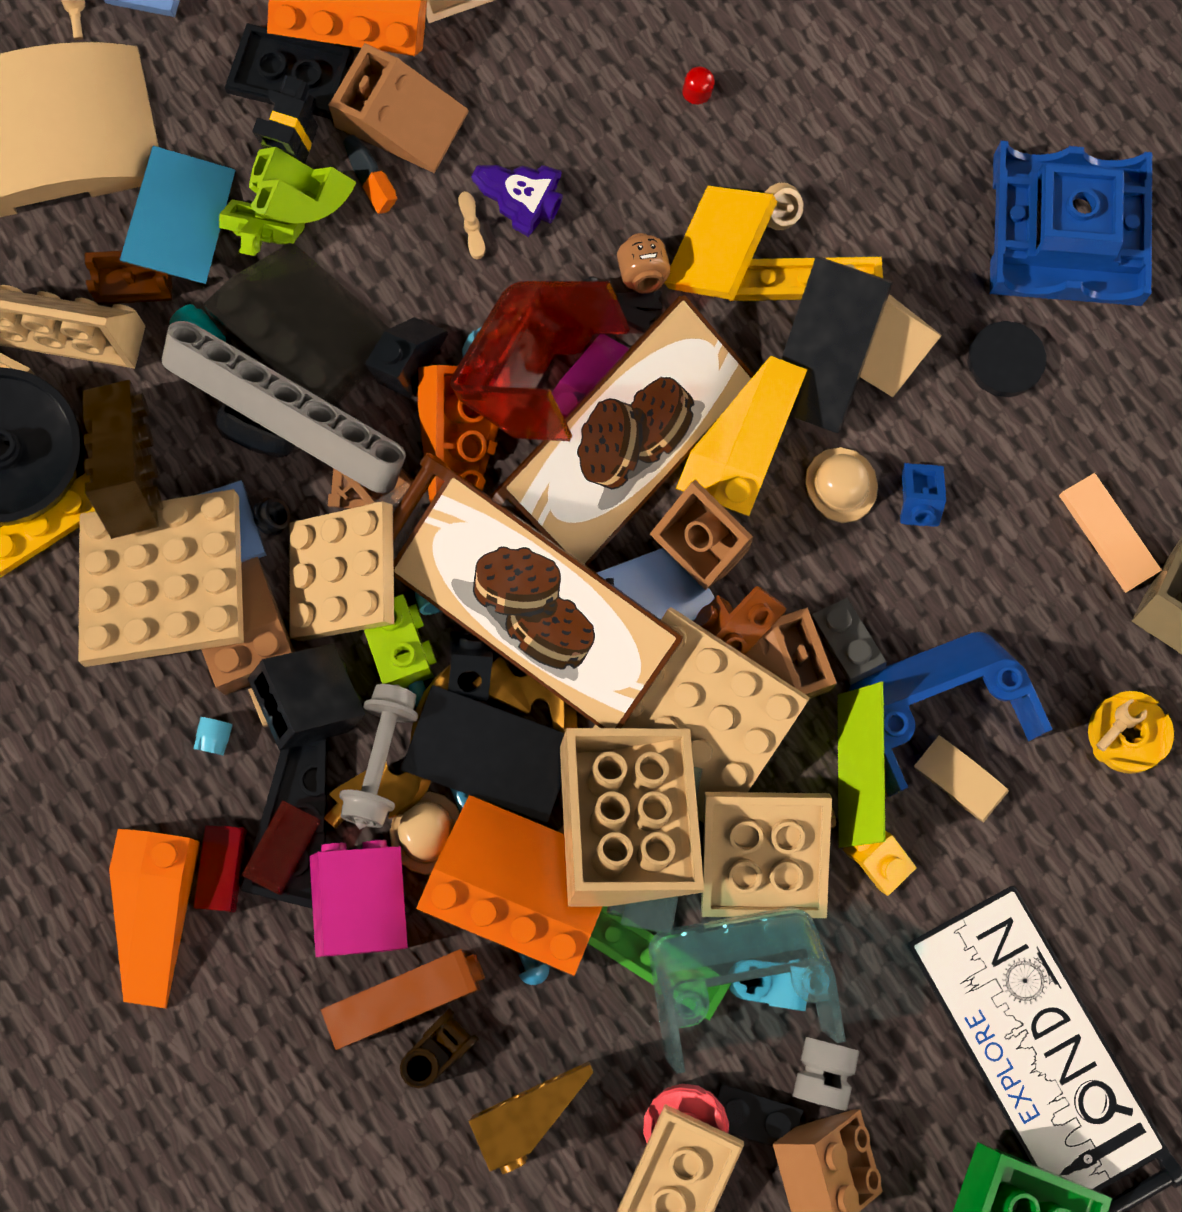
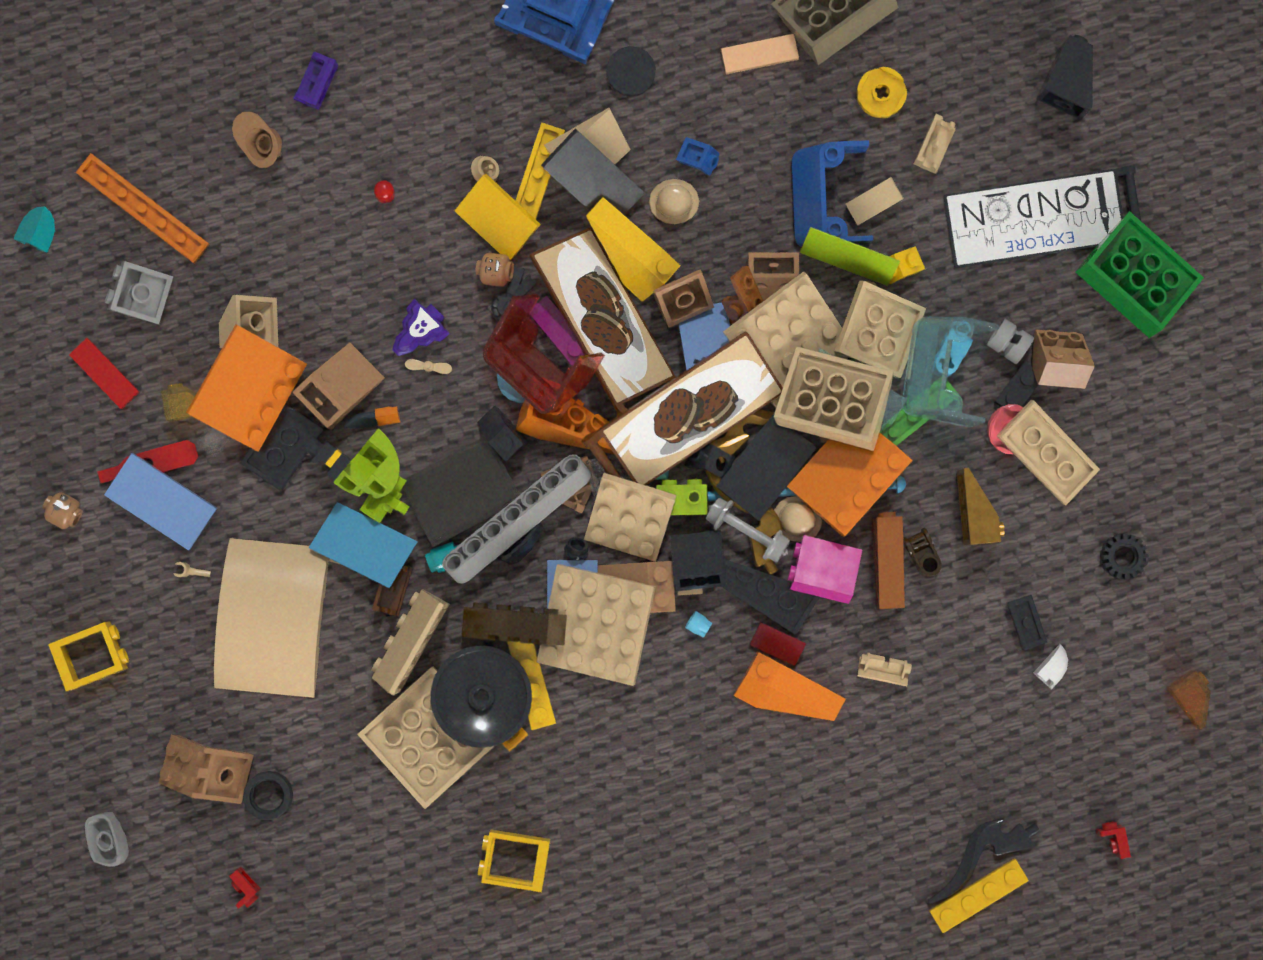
camera: 70 degrees left, 10 degrees up
(226, 1054) = (892, 672): none -> tan hinge
(281, 847) = (779, 603): clear red tile -> none
(849, 641) = (772, 234): dark grey plate -> none
(1086, 842) = (935, 144): none -> tan hinge
(1123, 721) = (875, 95): tan hand -> none

